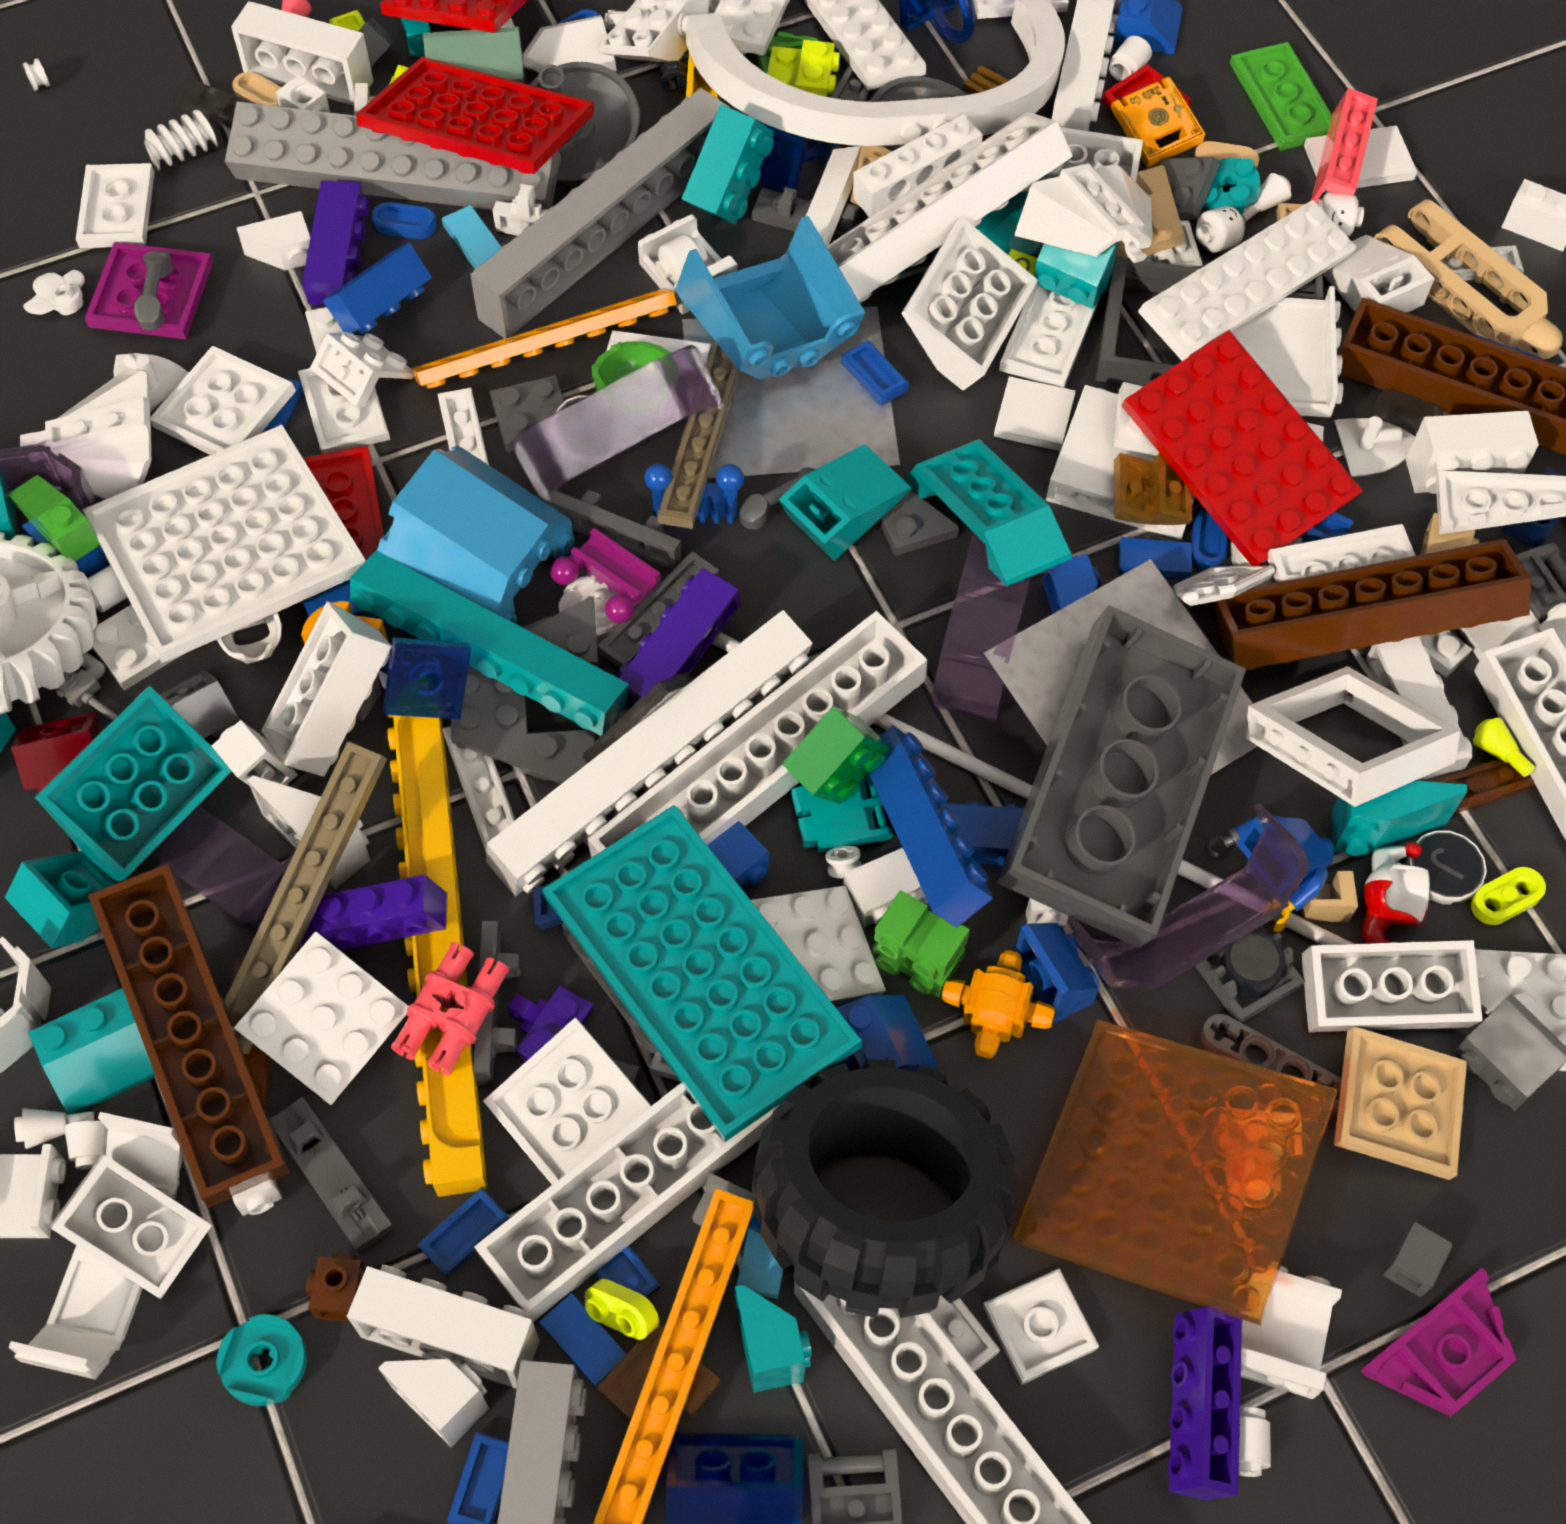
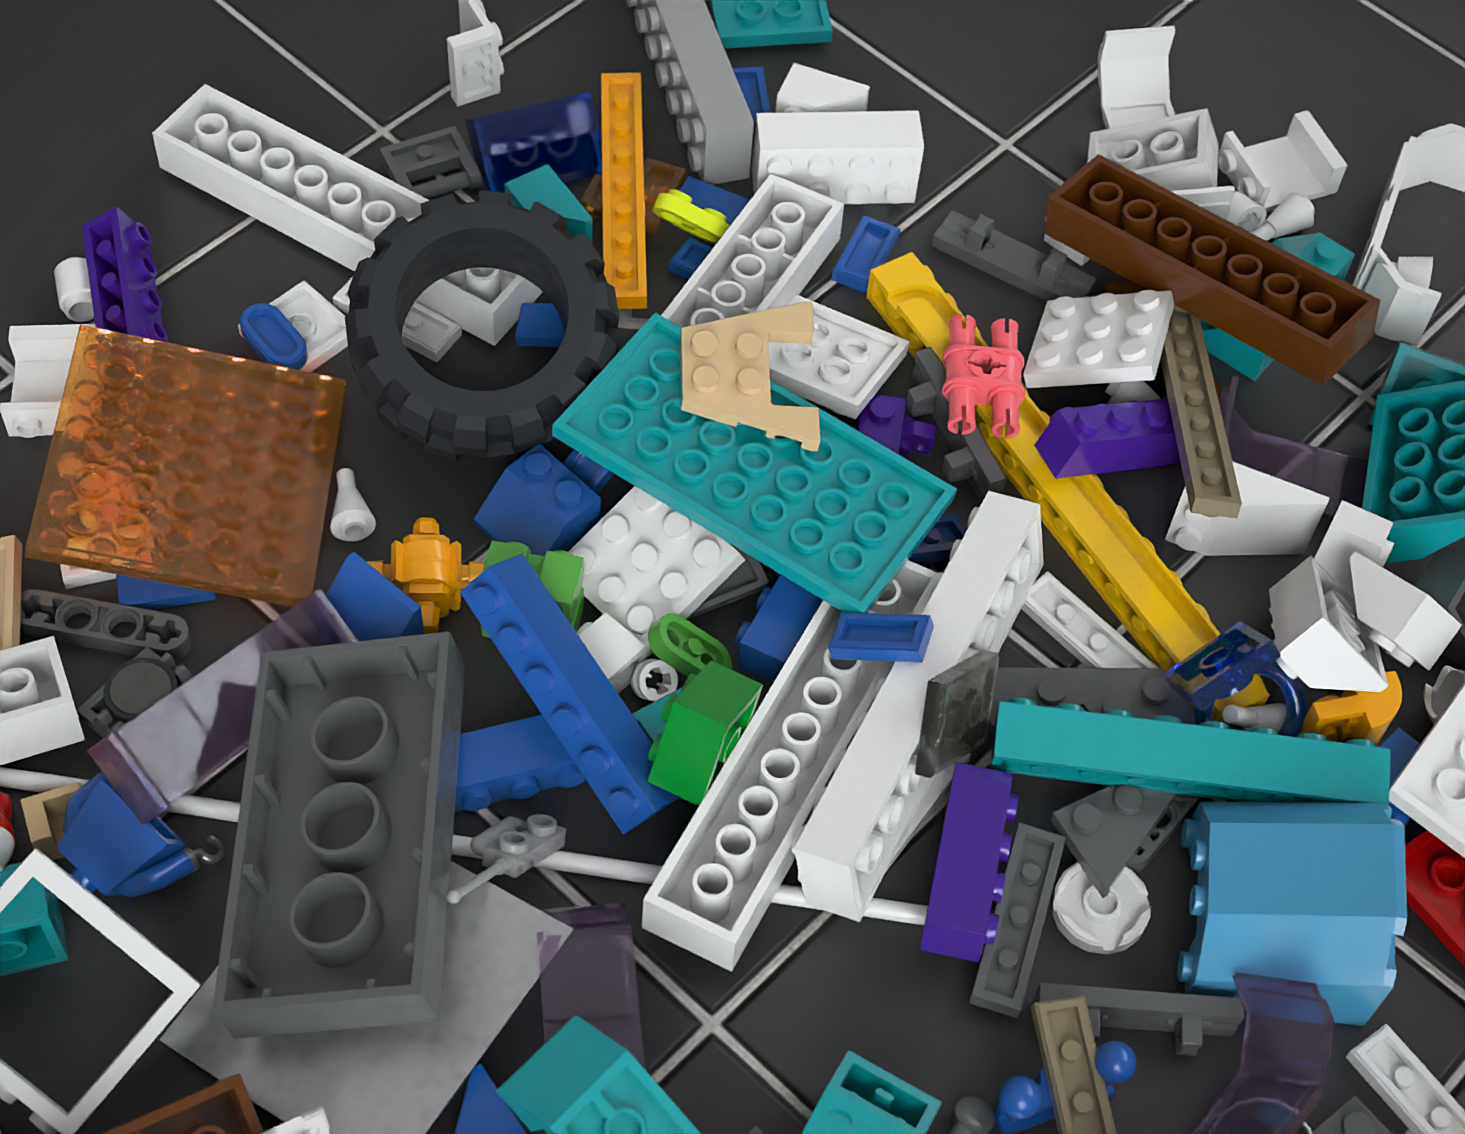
camera: 155 degrees right, 5 degrees down
(250, 1339) = (977, 137): teal plate -> none
(259, 679) = (1400, 615): none -> white slope
(334, 1286) = (947, 169): reddish brown brick -> none
(615, 567) = (1101, 936): magenta gear -> none
(671, 779) = (881, 637): none -> blue tile
(685, 1047) = (729, 372): none -> tan wing
(809, 866) = (685, 645): none -> bright green plate
(1001, 745) = (512, 849): none -> light grey piece
(1043, 1095) = (351, 515): none -> white cone
(1070, 1307) = (273, 336): none -> blue tile

